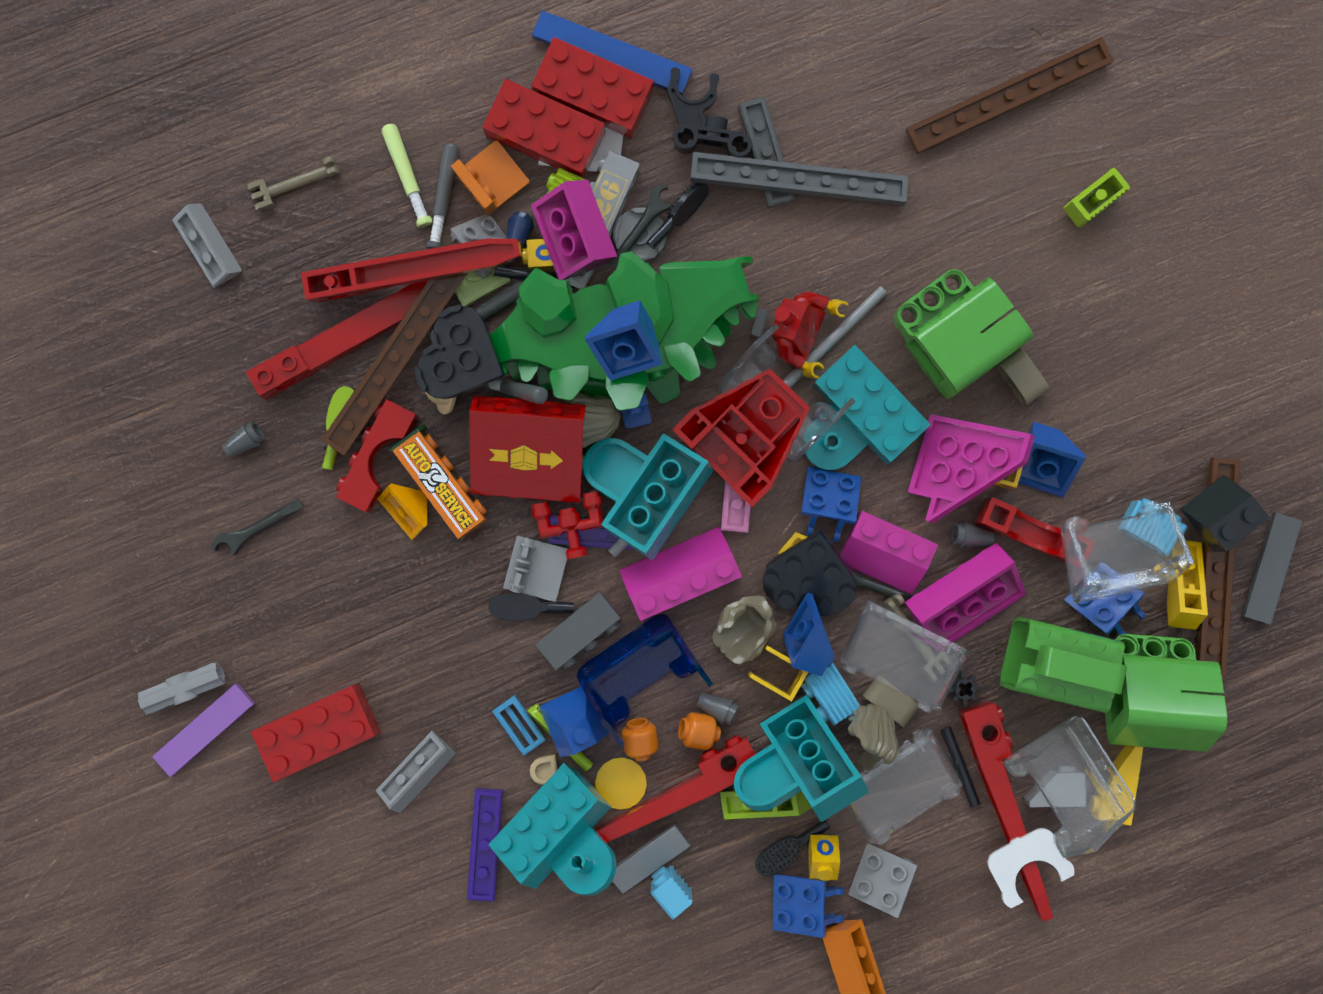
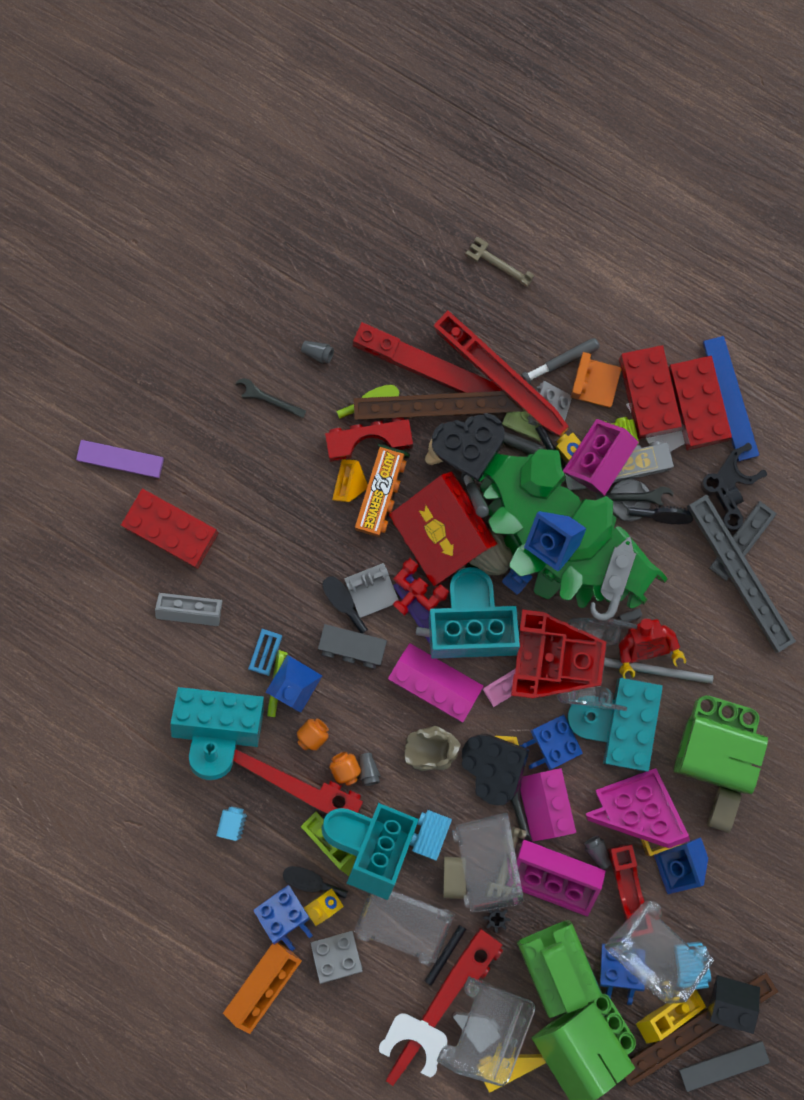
camera: 55 degrees right, 5 degrees down
(181, 688) = (136, 426): light grey piece -> none
(206, 244) = (421, 239): light grey slope -> none
(404, 169) = (559, 325): yellowish green piece -> none
(483, 860) = (166, 690): dark purple tile -> none
(520, 227) = (577, 422): dark blue cone -> none
(543, 768) = (249, 687): tan tile -> none
(621, 783) = (275, 744): yellow sticker -> none
(634, 665) = (355, 696): clear blue windscreen -> none
(649, 857) = (241, 796): light grey slope -> none
(713, 309) = (616, 578): none -> light grey plate
(795, 685) = (433, 806): yellow piece -> none
(807, 639) = (454, 793): blue slope -> none
(876, 733) = (426, 880): dark tan hair -> none

